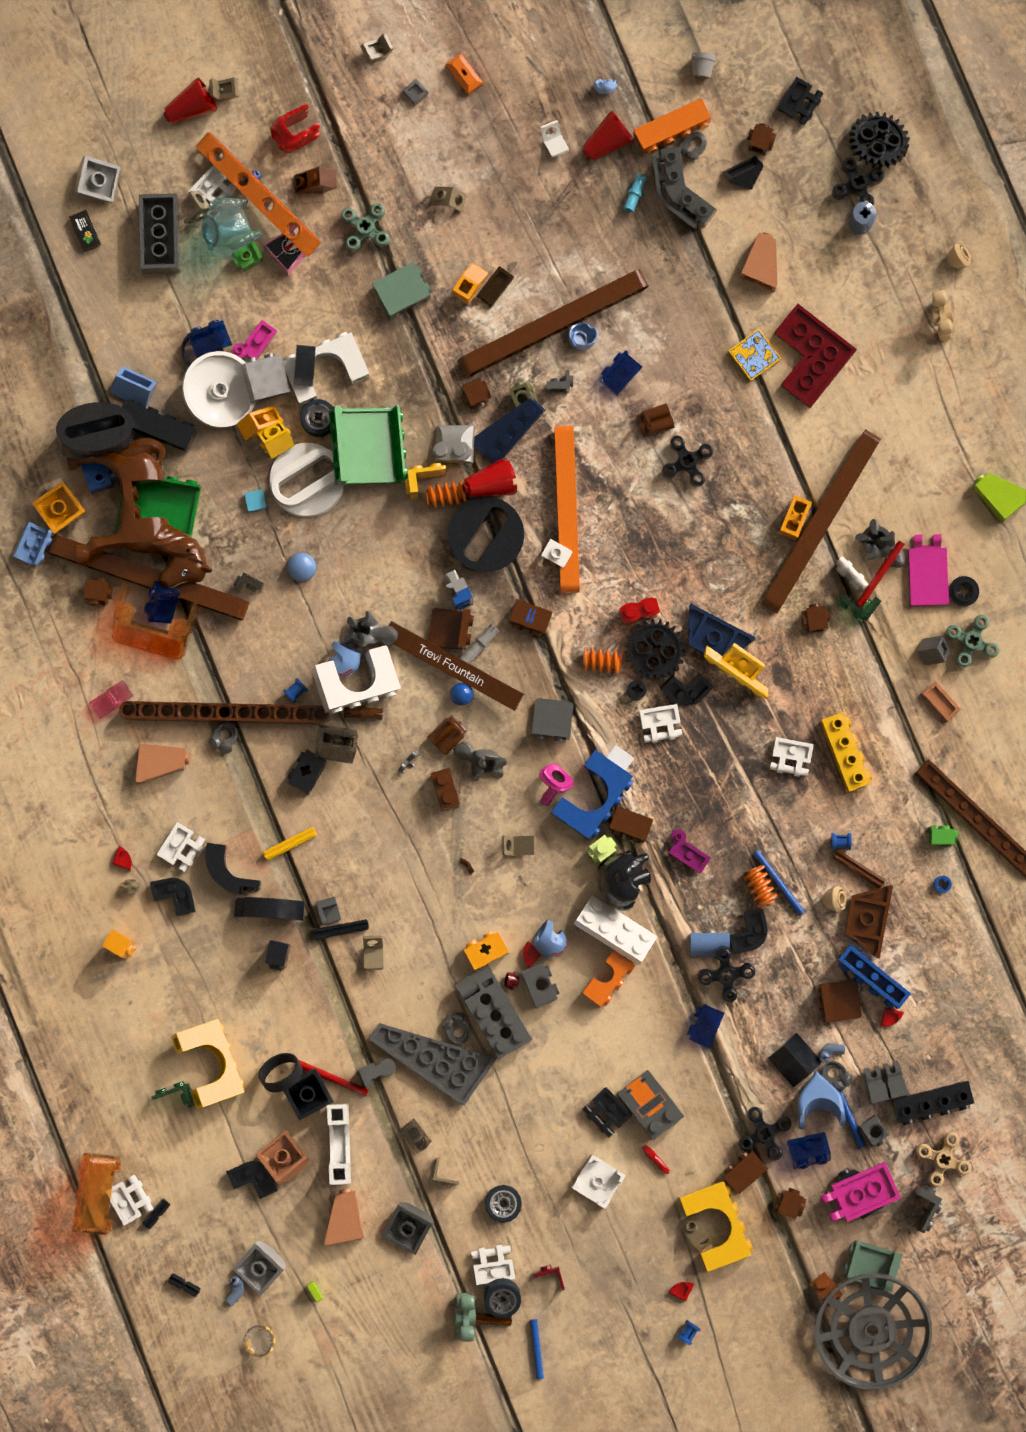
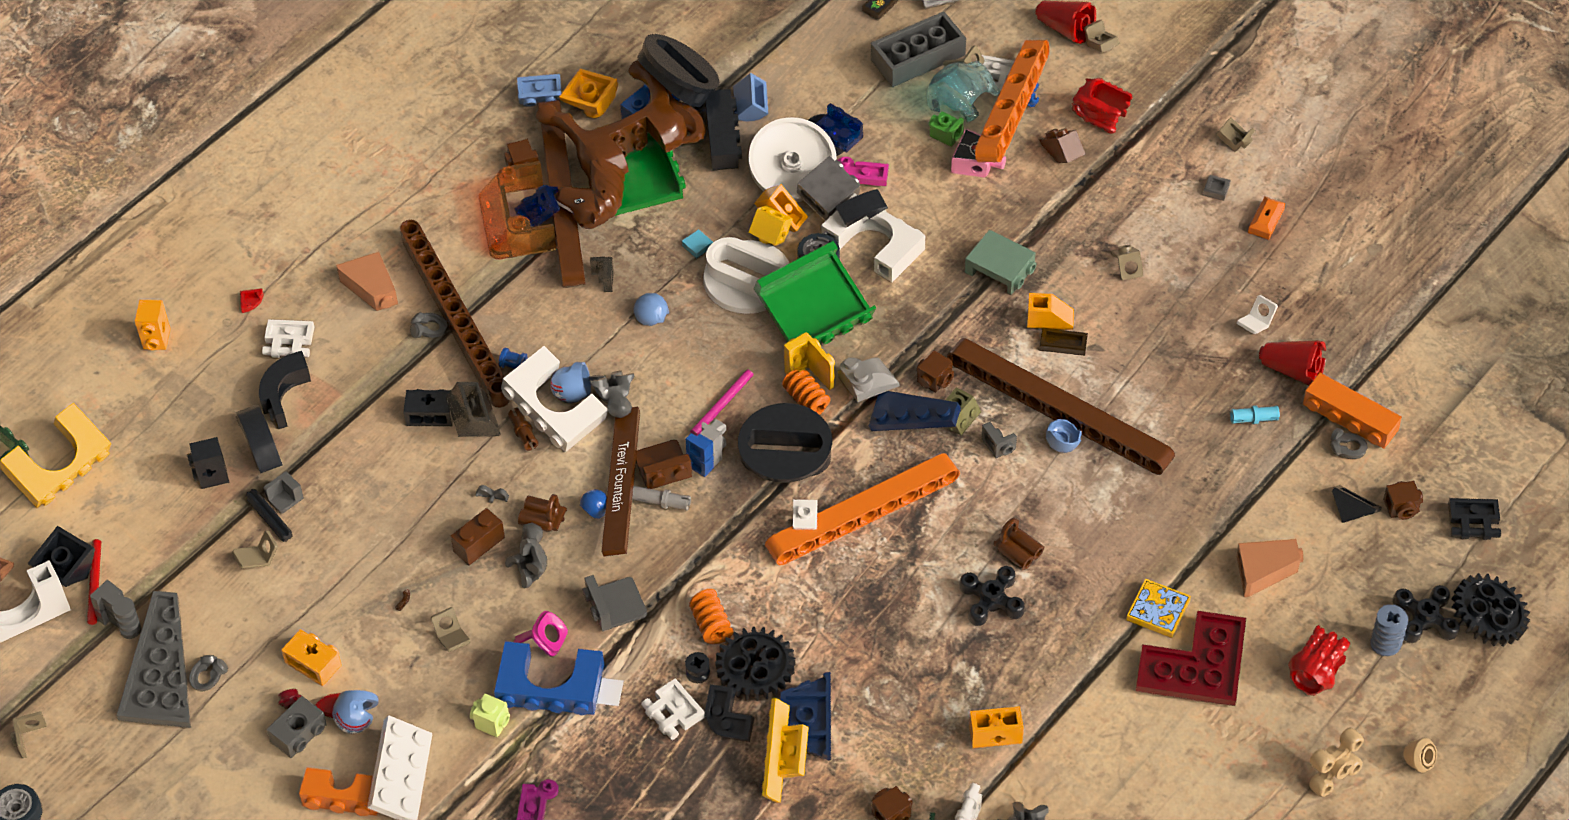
camera: 70 degrees right, 30 degrees down
(111, 699) = (425, 217): clear pink slope -> none
(130, 886) = (222, 314): dark tan plate -> none
(178, 890) = (238, 355): black plate -> none
(275, 1061) = (74, 522): black tyre -> none
(290, 843) = (342, 429): yellow axle -> none
(358, 223) = (1044, 205): sand green gear -> none
(415, 1136) = (58, 686): clear smoke bracket -> none
(416, 559) = (722, 402): none -> dark pink bar
(485, 982) = (240, 696): dark grey hinge -> none
(491, 481) = (846, 418): red cone -> none
(530, 617) = (719, 529): reddish brown brick -> none
(605, 87) = (1348, 336): light blue plate -> none
(620, 372) = (1049, 489): clear blue bracket -> none
(621, 877) = (460, 739): black piece -> none
(630, 824) = (536, 731): reddish brown brick -> none
(645, 610) = (793, 626): red brick -> none
(678, 191) = (1286, 441): dark grey brick -> none
(702, 65) = (1440, 409): light grey piece -> none
(821, 521) = (1012, 760): reddish brown beam -> none
(860, 278) = (1318, 662): none -> red piece

